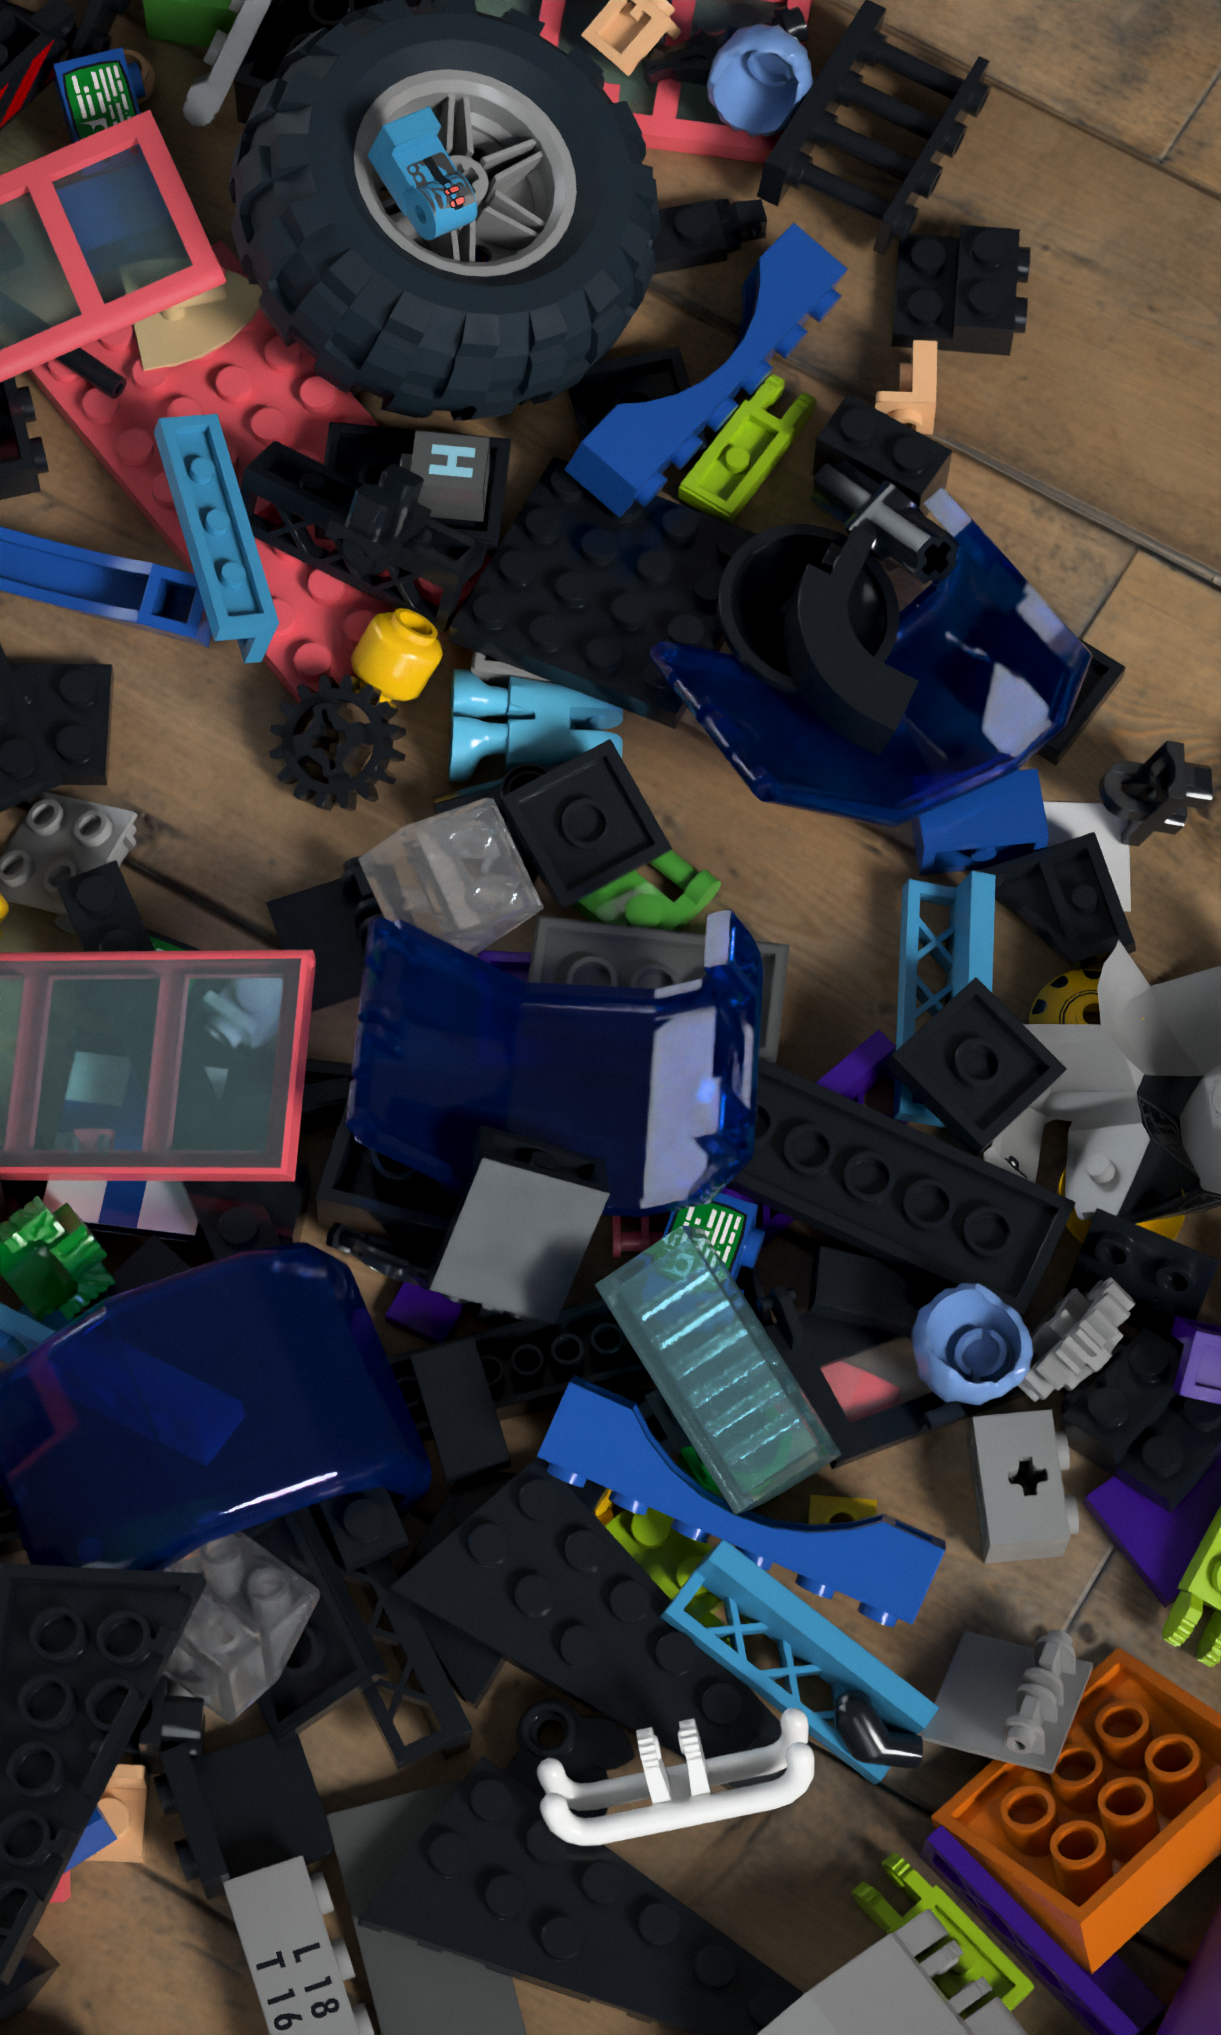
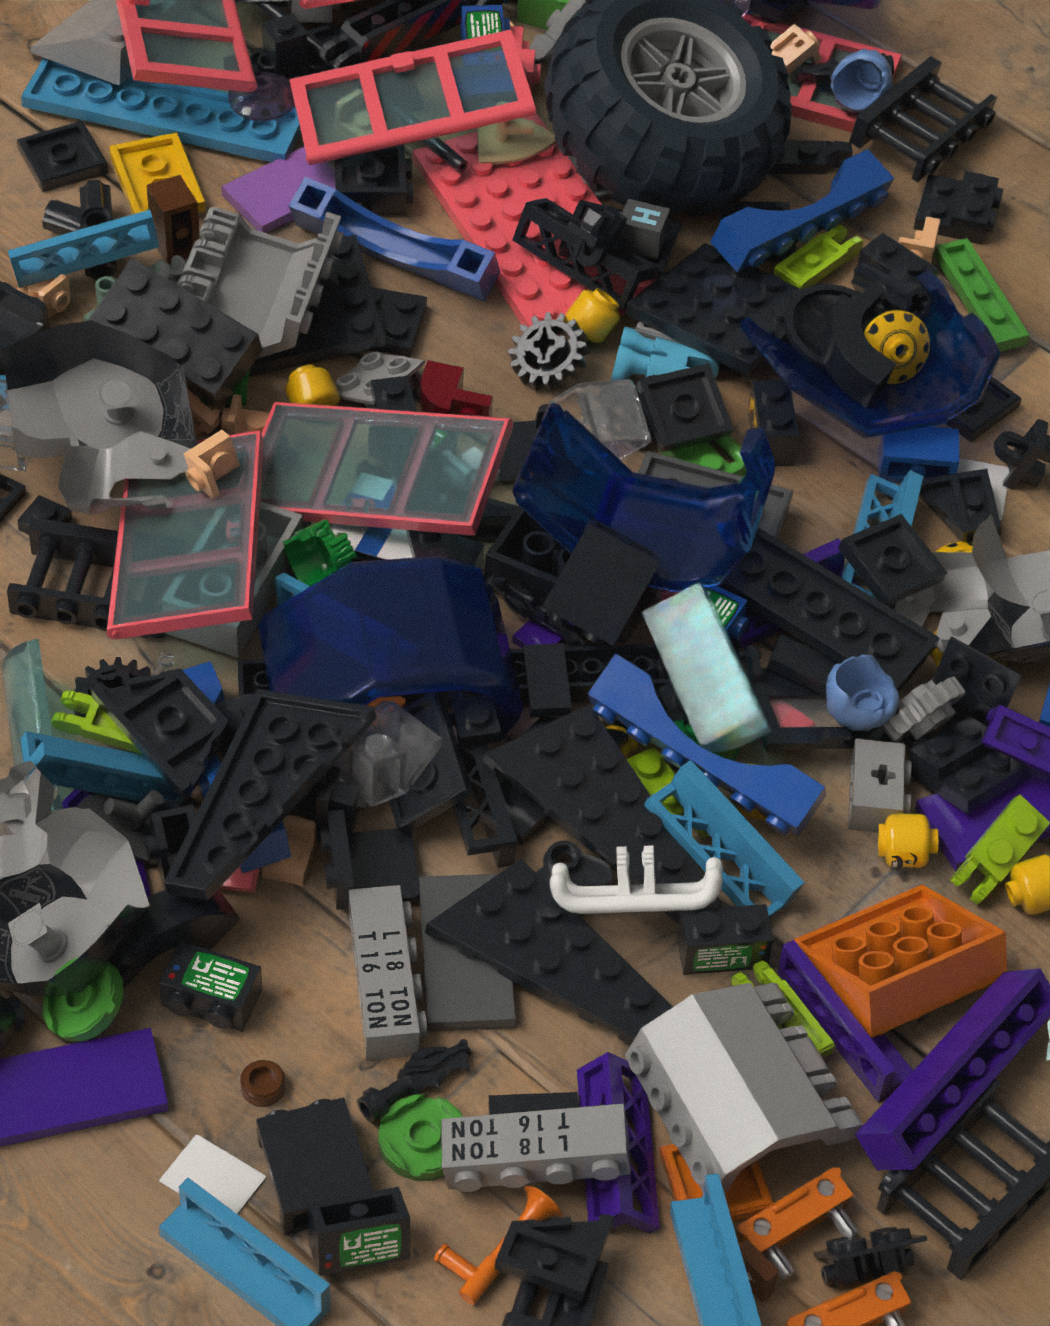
camera: 10 degrees right, 15 degrees down
(184, 882) = (444, 392): none -> dark red brick
(189, 155) = (527, 57): none -> coral slope
(217, 532) = (503, 233): dark azure fence -> none
(422, 175) = (658, 54): dark azure leg -> none
(731, 820) = (774, 411): none -> black brick
(831, 1831) = (724, 939): none -> black brick
(868, 1737) = (757, 891): black arm -> none
(909, 612) = (899, 328): none -> yellow dish
(1010, 1699) = (851, 892): light grey hinge -> none
(1027, 471) = (981, 293): none -> bright green plate
(1083, 1581) = (907, 840): none -> yellow head

